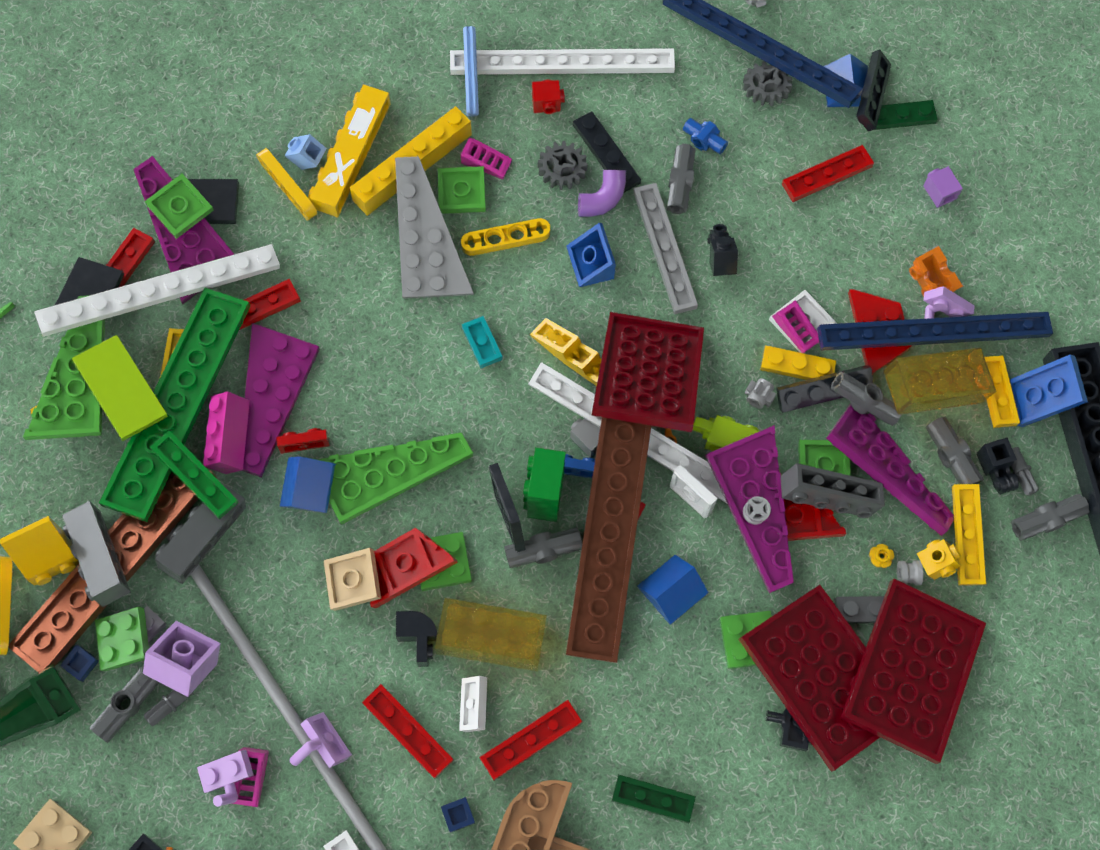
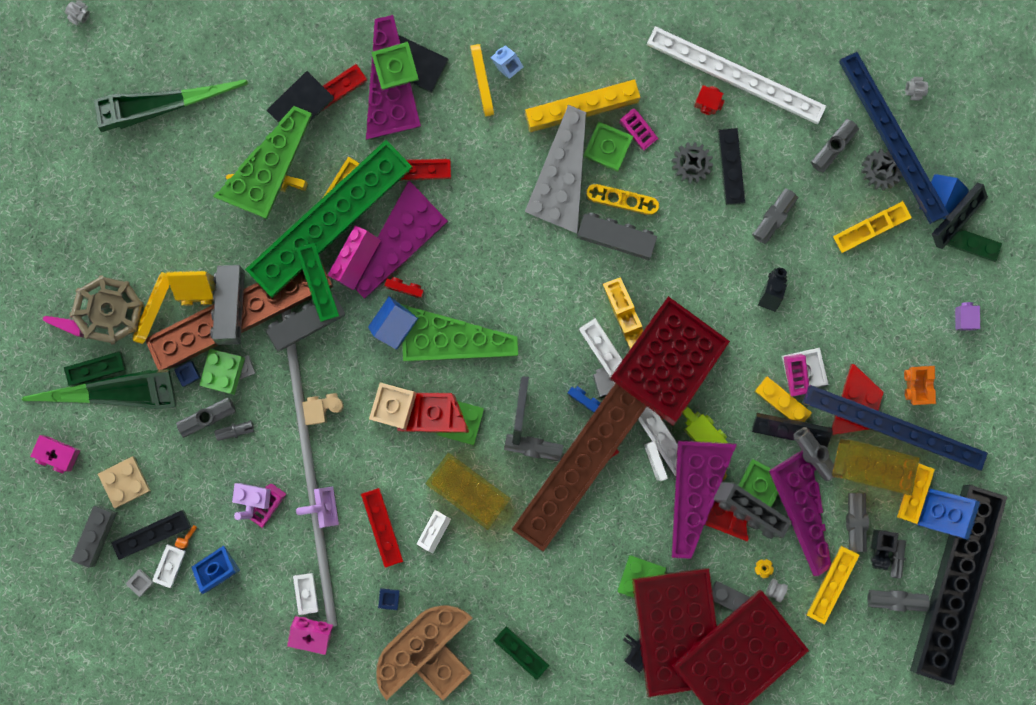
camera: 25 degrees right, 15 degrees up
(119, 387) = (293, 191): lime tile -> none
(156, 290) = (352, 126): white plate -> none
(181, 658) = (255, 407): lavender brick -> none
(260, 626) = (316, 408): none -> tan brick
(349, 150) = (541, 74): yellow brick -> none
(419, 628) = (422, 462): black brick -> none
(471, 80) = (661, 52): light blue axle -> none
(482, 342) = (565, 274): teal plate -> none
(519, 275) = (616, 236): none -> dark grey brick
(530, 740) = (460, 574): red plate -> none
(544, 484) = (554, 408): green brick -> none
(592, 257) = (676, 247): blue slope -> none
(606, 198) = (711, 205): medium lavender cylinder -> none
(665, 248) = (734, 265): light grey plate -> none
(673, 588) = (608, 519): blue slope -> none
(703, 92) = (841, 137): none -> dark grey piece
(705, 135) = (812, 189): blue axle -> none
(760, 393) = (743, 411): light grey gear -> none
(760, 506) = (692, 502): light grey wheel -> none
(790, 144) = (872, 227): none -> yellow slope
(827, 173) = (888, 264): red plate -> none
(940, 559) = (802, 592): yellow brick -> none
(947, 302) = (914, 410): lavender plate -> none

